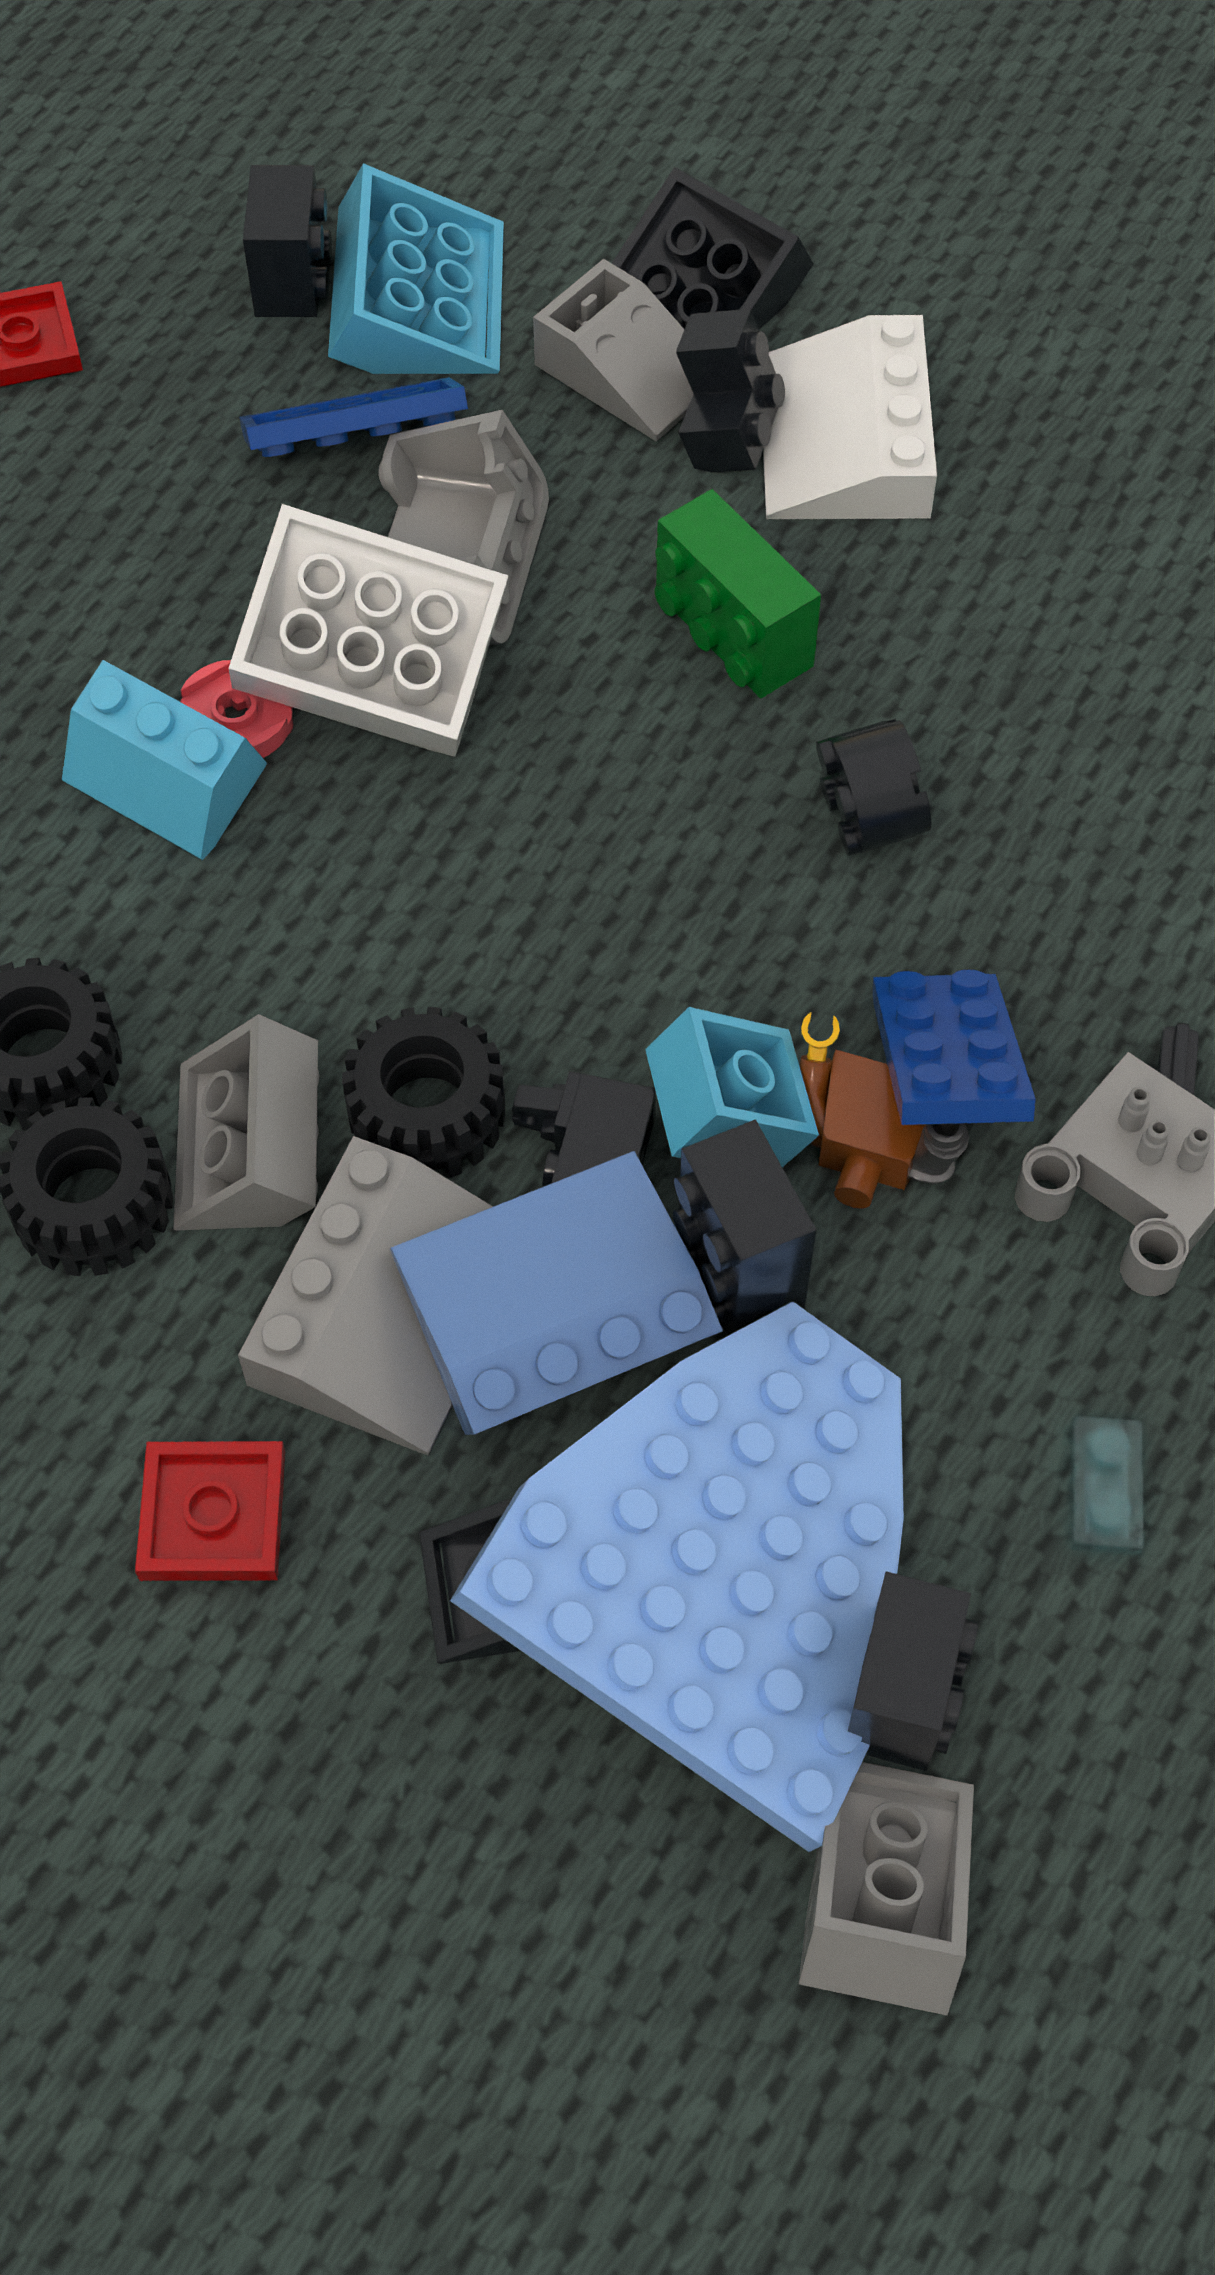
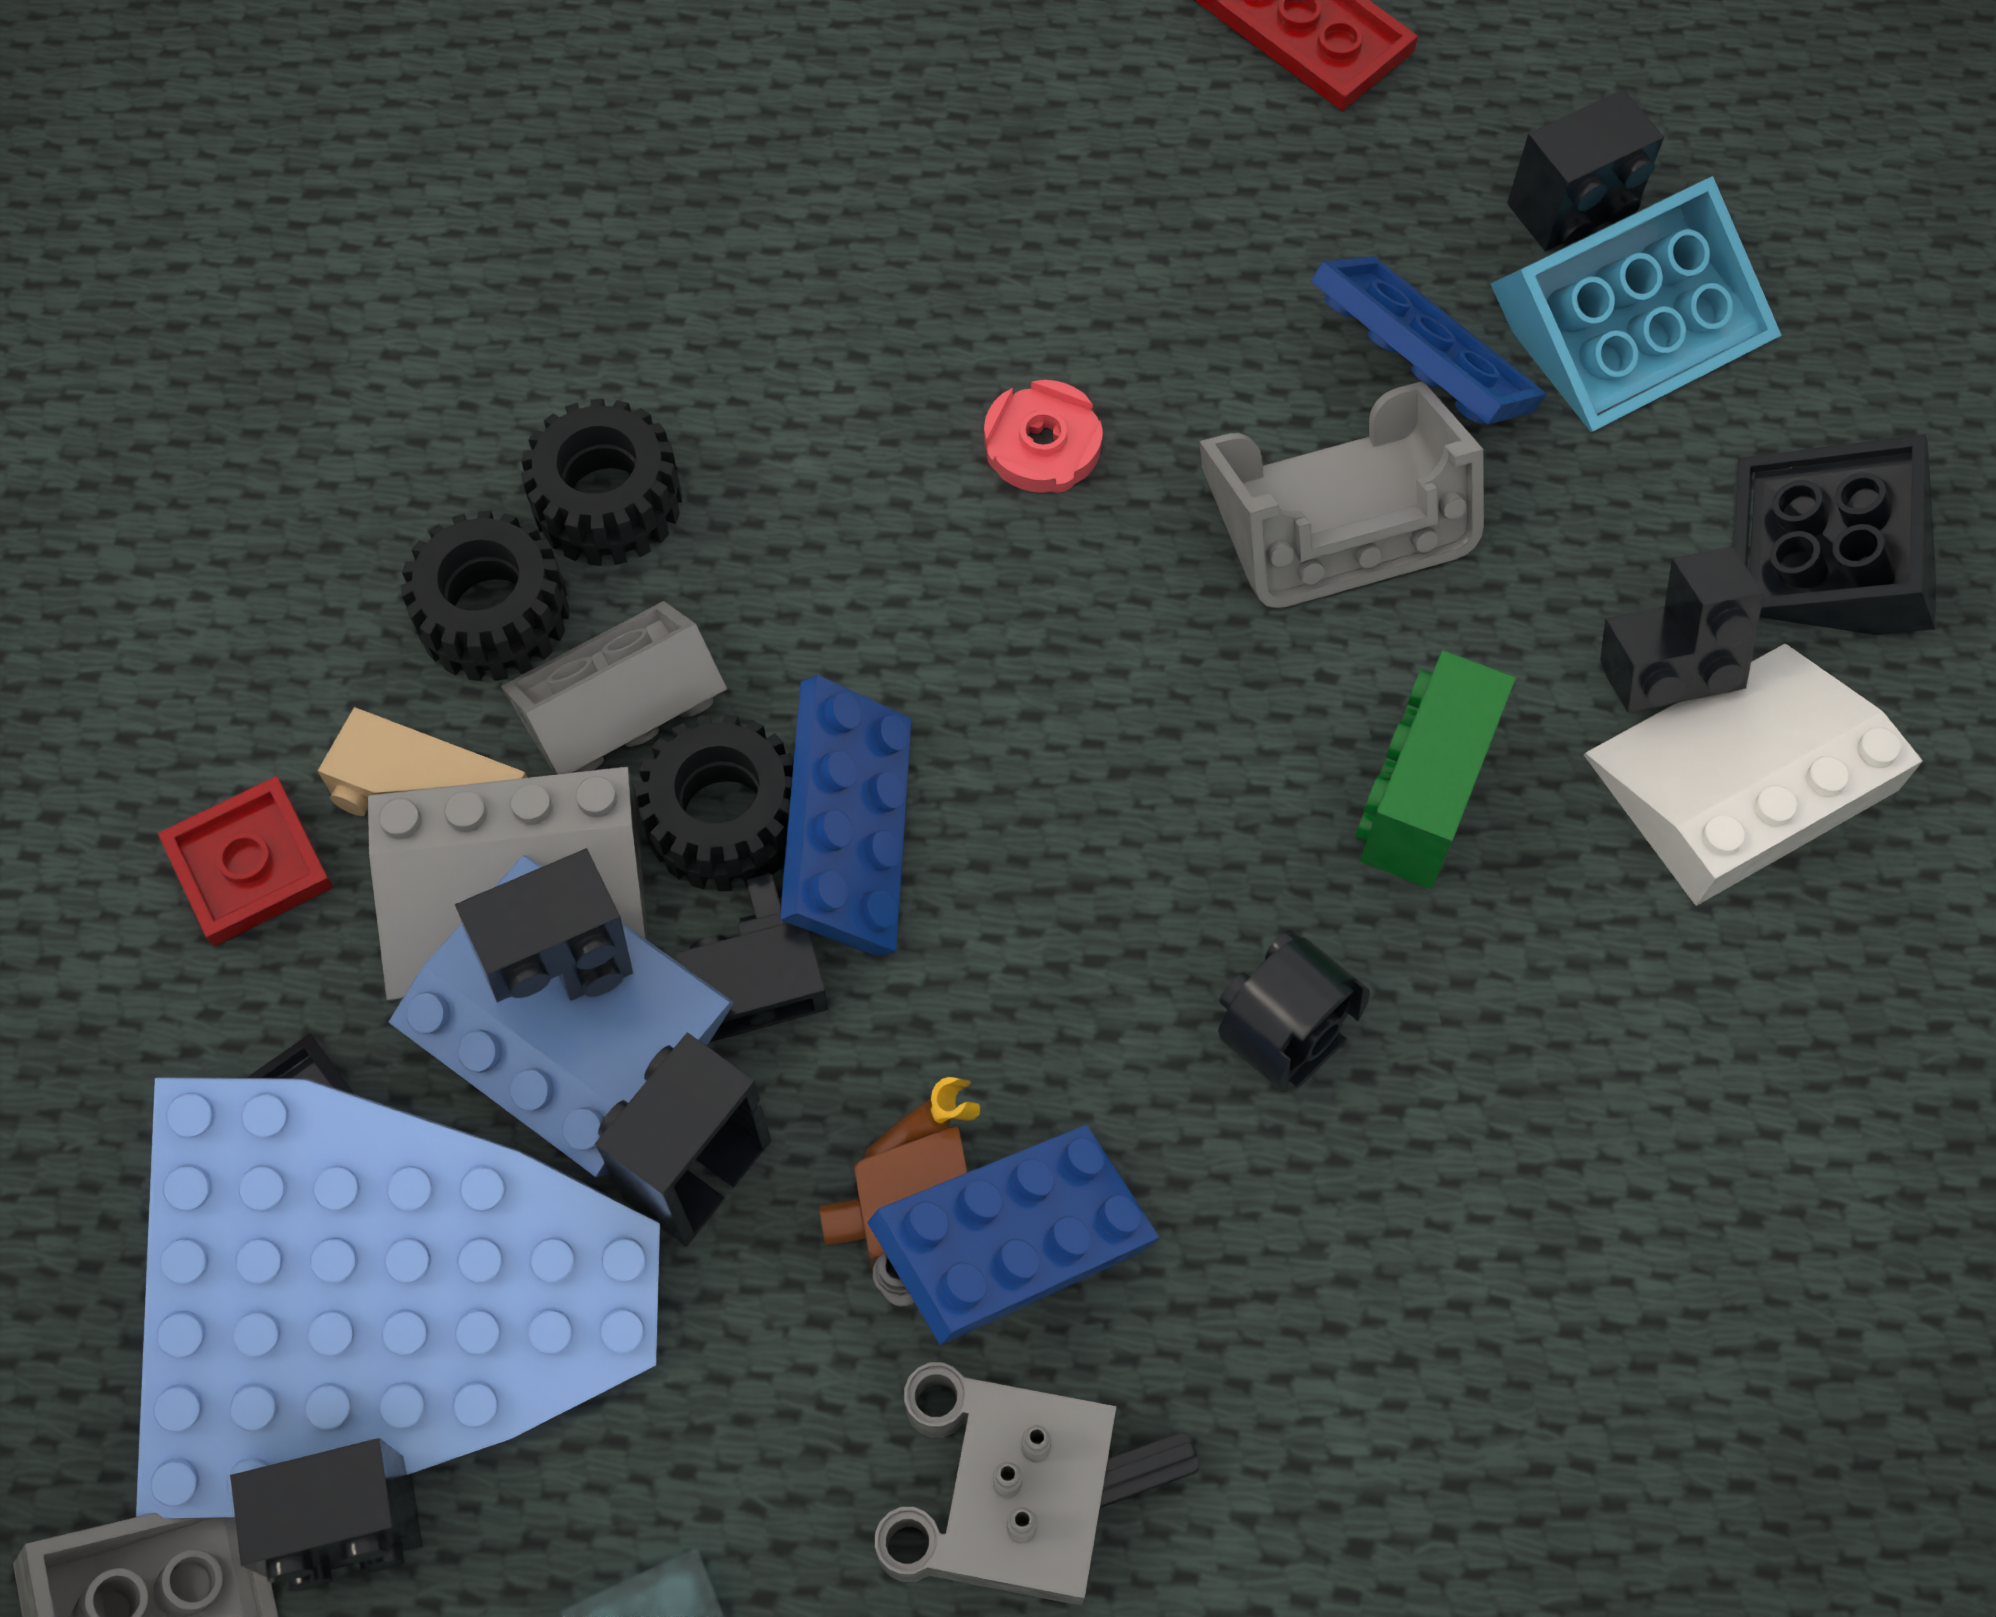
camera: 60 degrees right, 5 degrees up
(157, 760) = (944, 405): medium azure slope -> none
(198, 1341) = (387, 757): none -> tan slope
(367, 630) = (1156, 484): white slope -> none
(505, 1004) = (846, 818): none -> blue plate
(516, 1214) = (546, 928): none -> black brick
(616, 349) = (1677, 497): light grey slope -> none
(727, 1072) = (854, 1056): medium azure brick -> none

